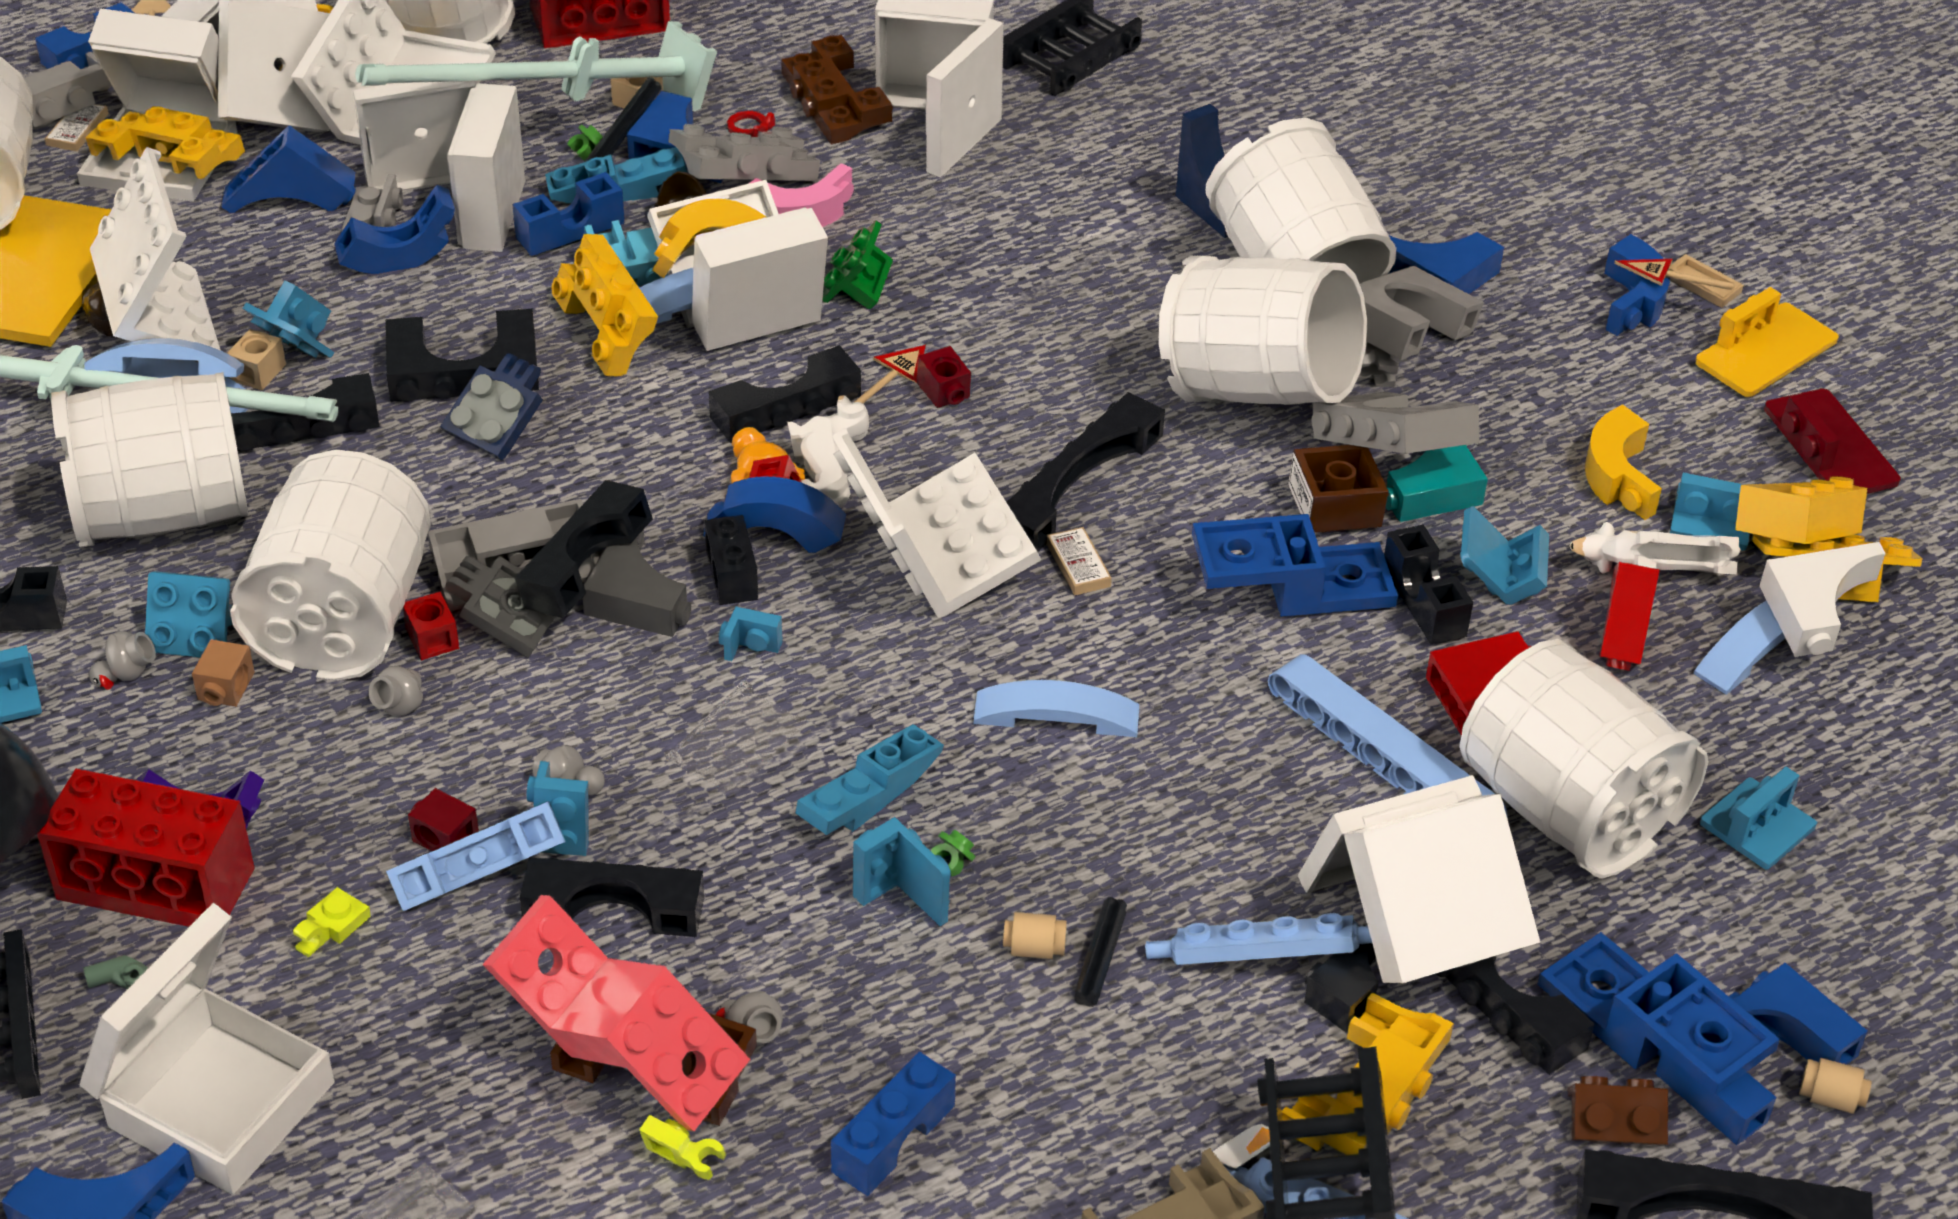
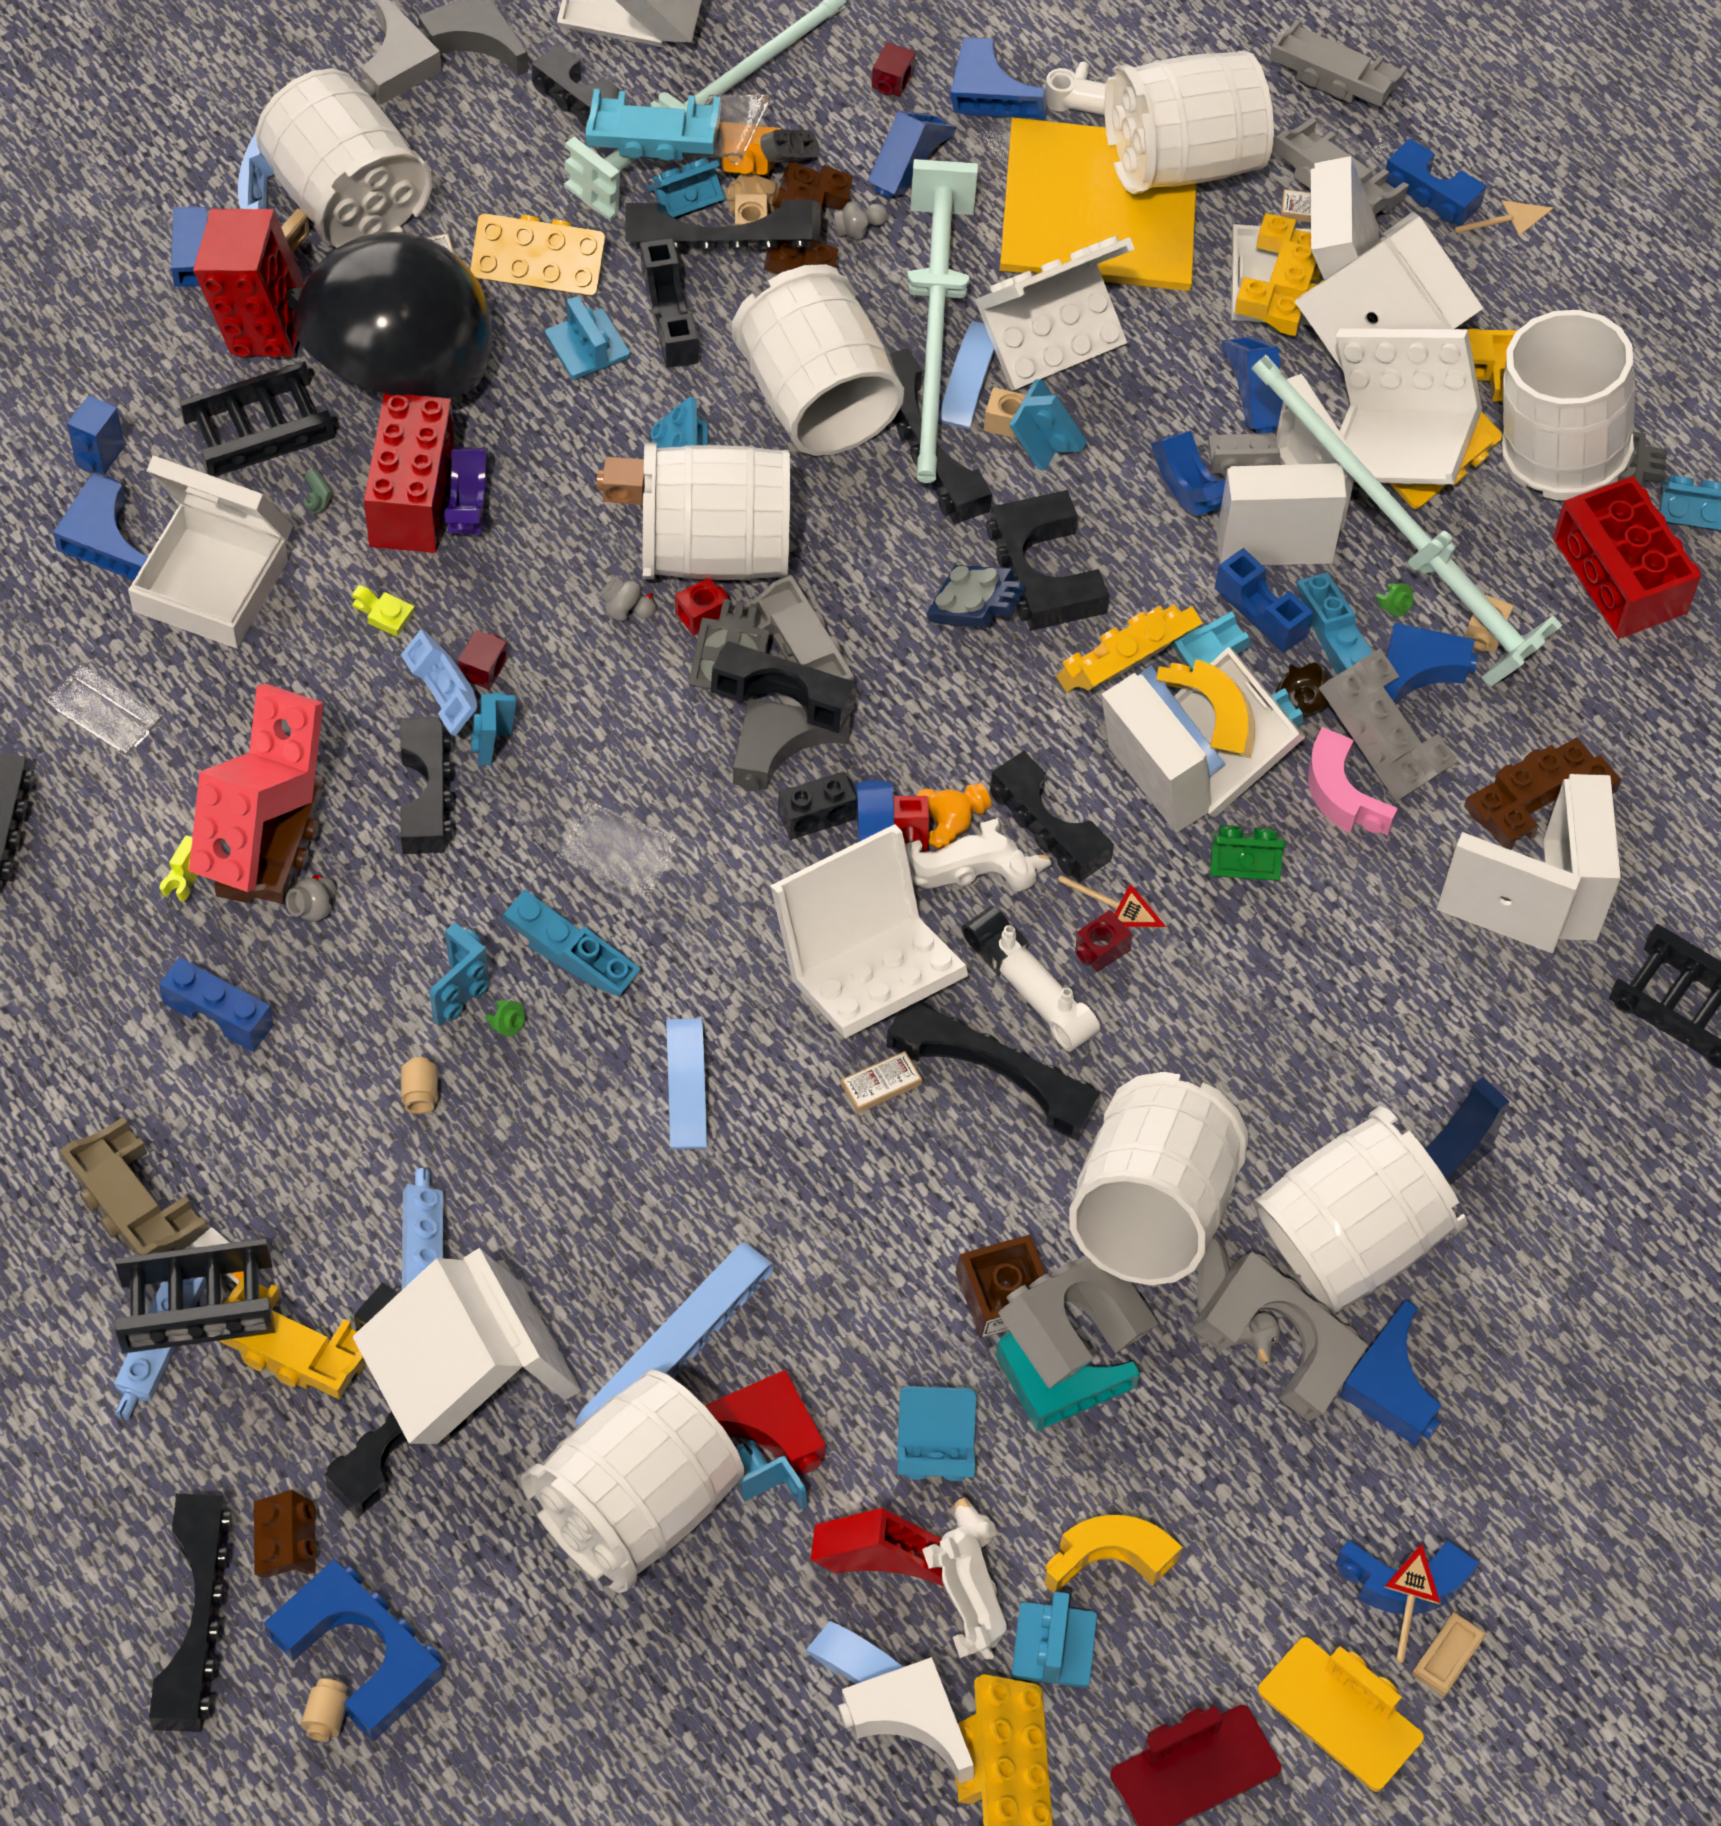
camera: 80 degrees right, 15 degrees up
(125, 658) = (630, 412): light grey animal -> none
(209, 358) = (973, 375): light blue slope -> none
(569, 764) = (553, 730): light grey animal -> none
(627, 119) = (1427, 620): black axle -> none
(751, 629) = (734, 830): dark azure bracket -> none
(766, 123) = (1478, 745): red piece -> none
(948, 443) = (1008, 955): none -> white piece
(1100, 952) = (415, 1138): black axle -> none
(1288, 557) = (881, 1250): blue bracket -> none
(1436, 604) = (861, 1381): black arch -> none
(1661, 1012) = (372, 1555): blue bracket -> none
(1760, 818) = (631, 1666): dark azure bracket -> none
(1802, 510) = (1041, 1716): yellow wedge -> none

